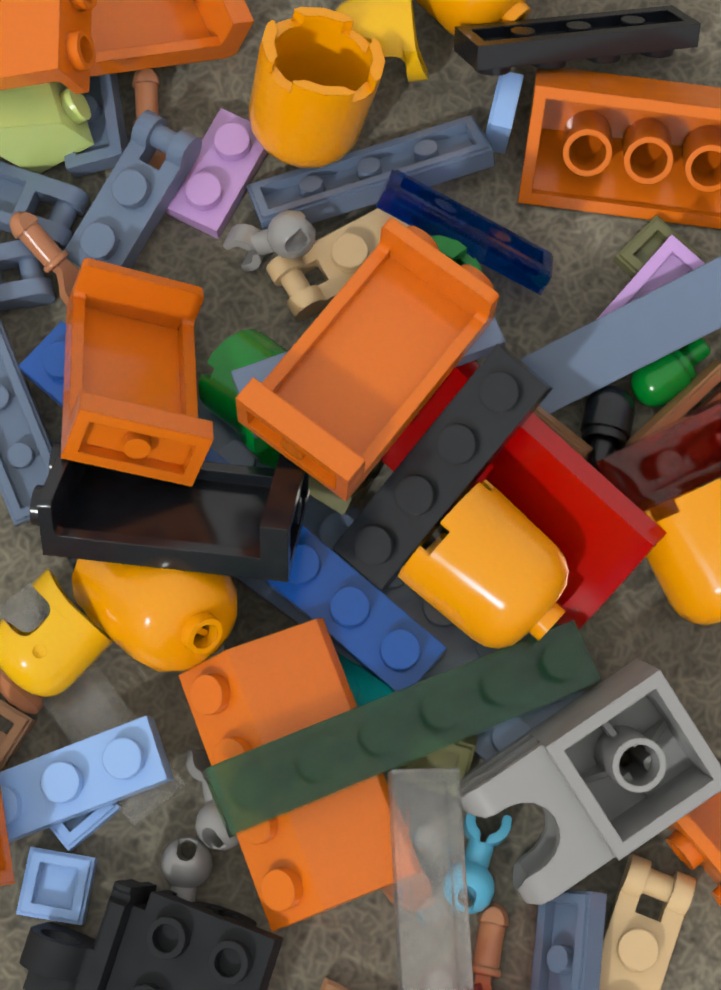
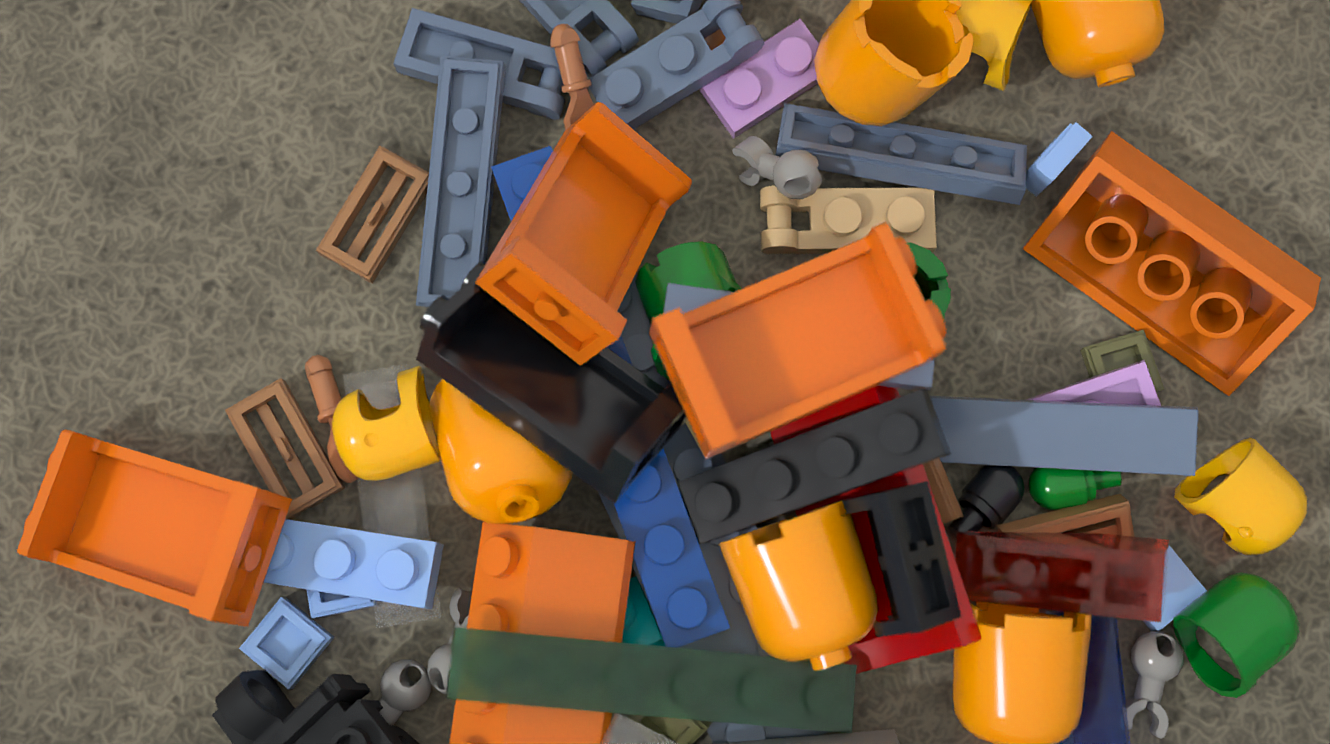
camera: 25 degrees right, 5 degrees up
(486, 240) = (968, 266): clear blue tile -> none
(564, 494) = (910, 558): none -> black hinge
(590, 36) = (1161, 125): black plate -> none

